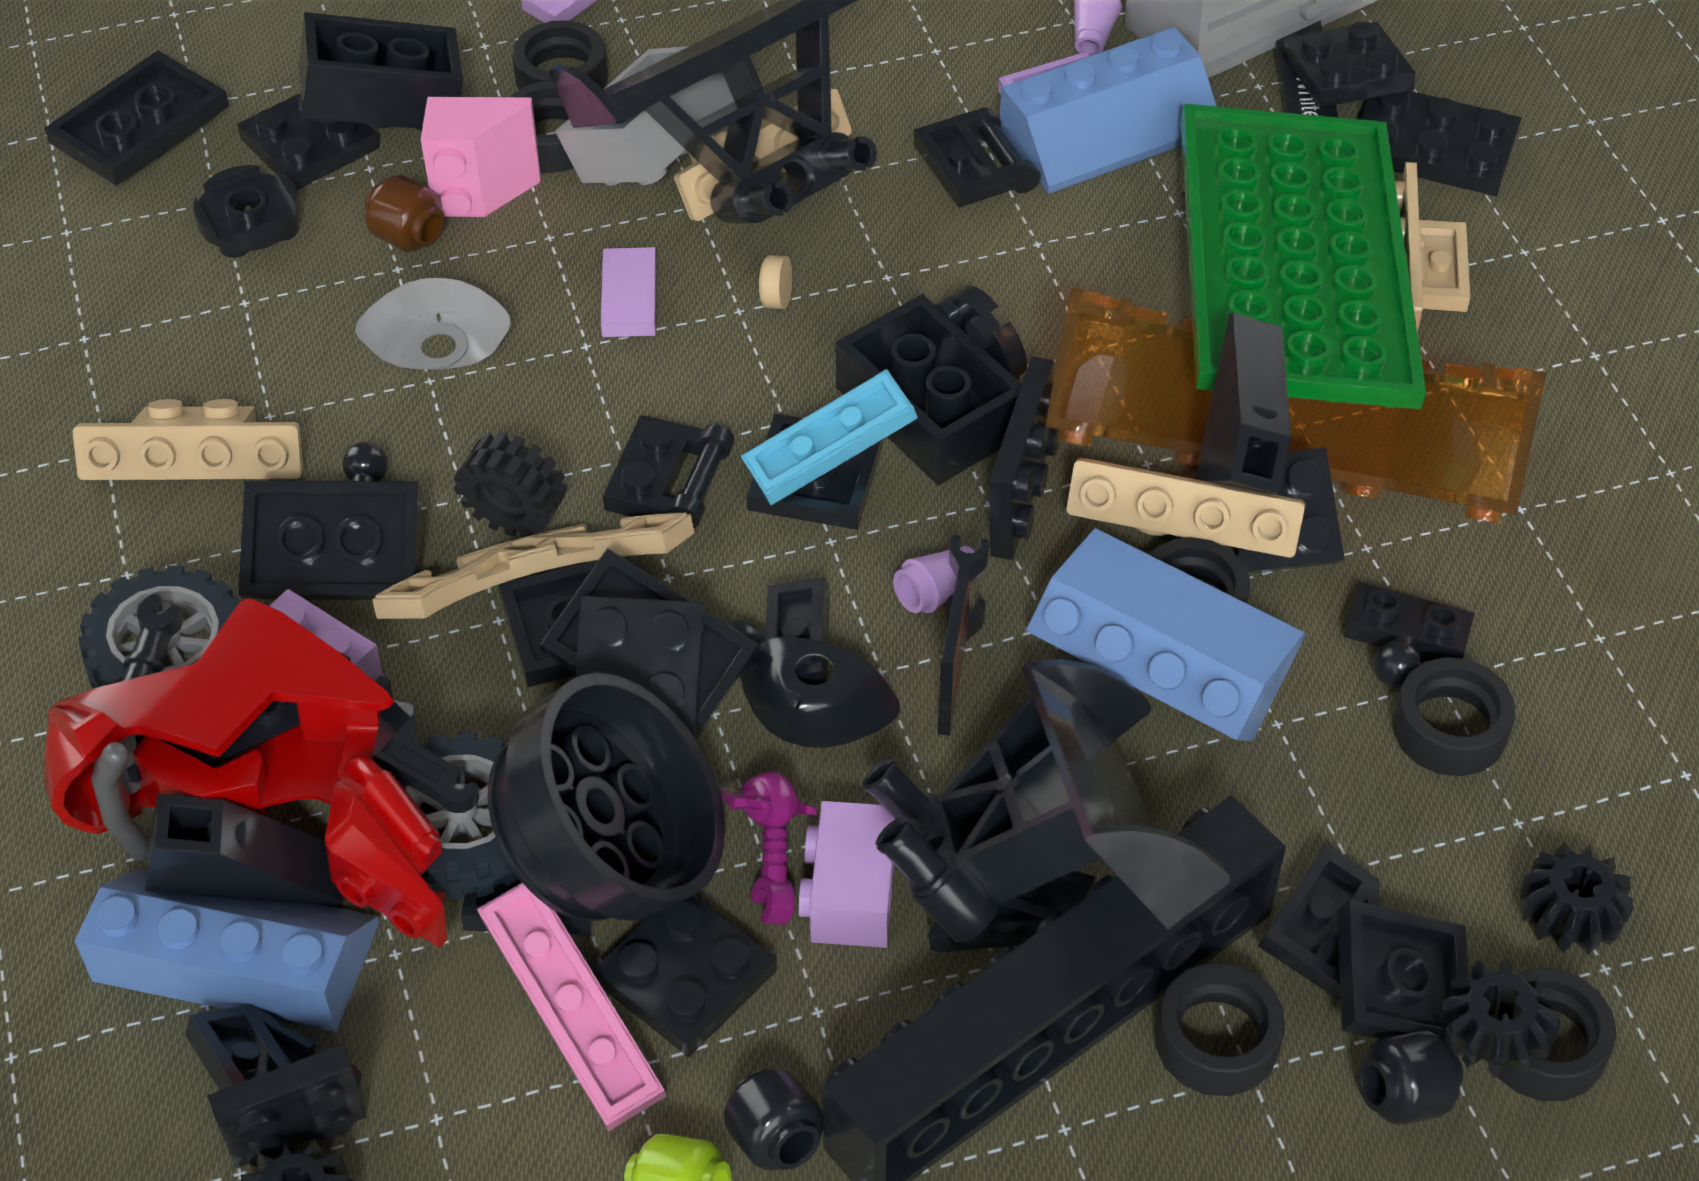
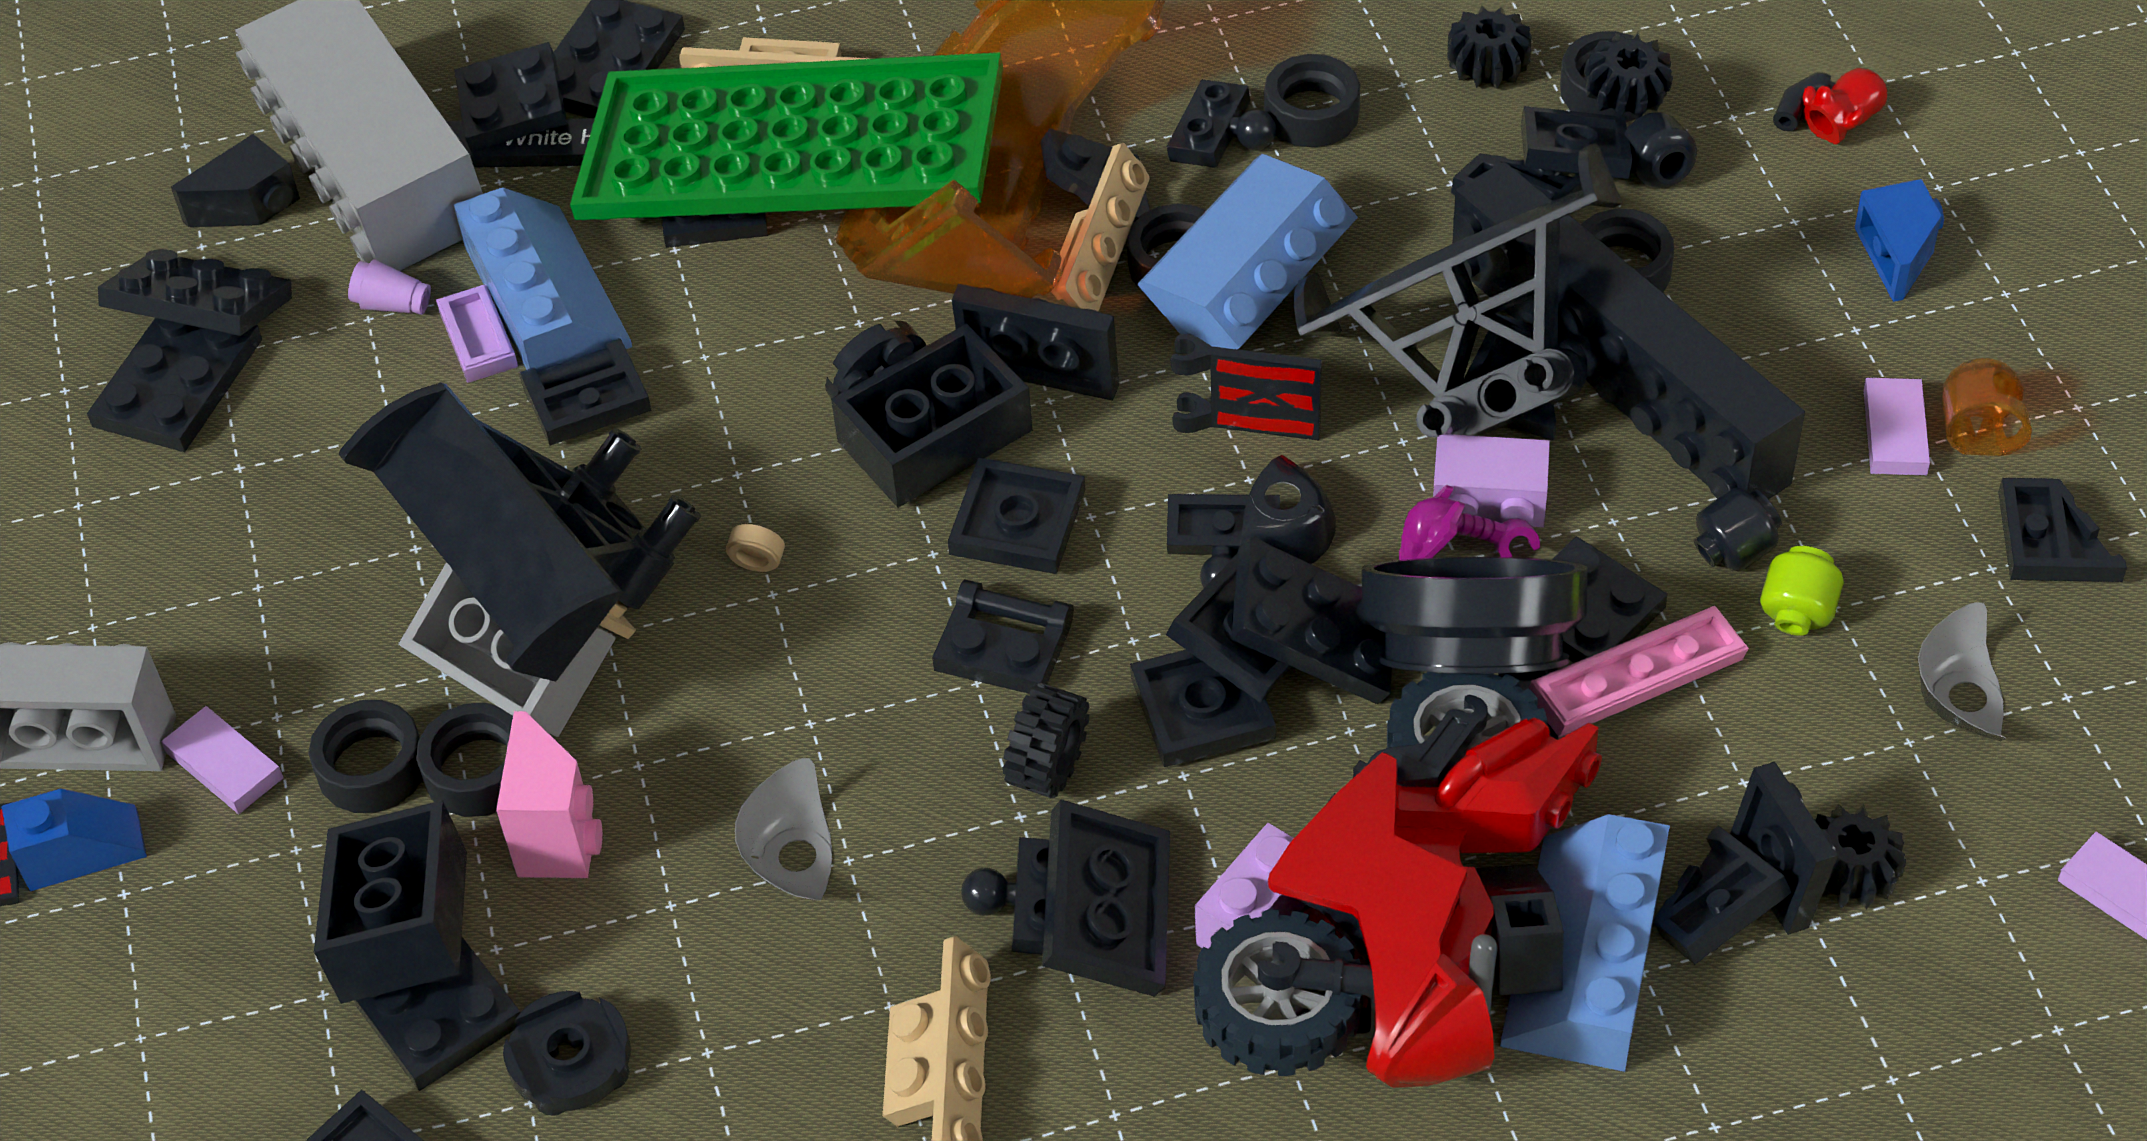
camera: 85 degrees left, 0 degrees up
(404, 213) = (611, 881): reddish brown head -> none
(476, 571) = (1121, 735): tan tile -> none
(628, 292) = (743, 681): lavender tile -> none
(829, 437) = (1010, 476): medium azure tile -> none
(926, 581) = (1159, 428): lavender cone -> none
(1248, 411) = (1043, 158): black slope -> none

